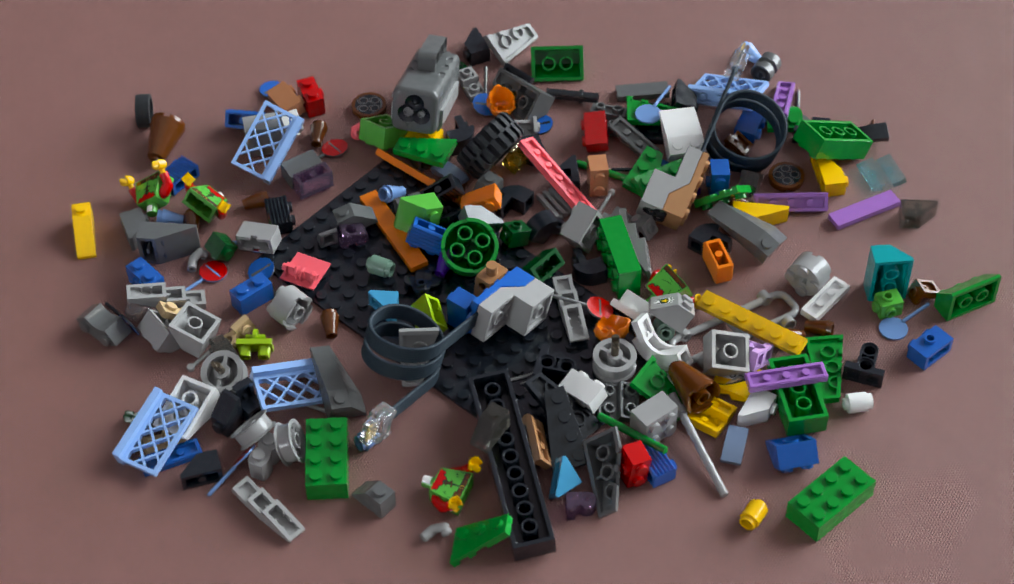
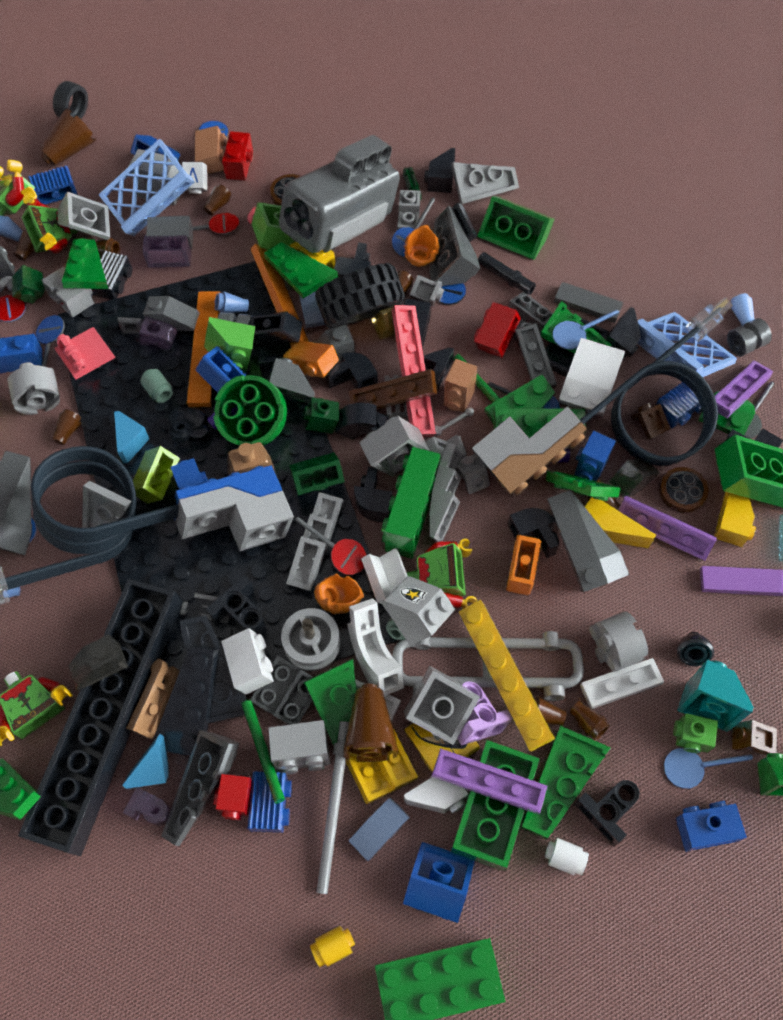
camera: 30 degrees right, 15 degrees up
(233, 181) = (84, 215): none -> light grey slope
(263, 213) = (84, 266): none -> green wing
(558, 194) = (396, 390): none -> reddish brown plate
(856, 260) = (695, 649): none -> black brick

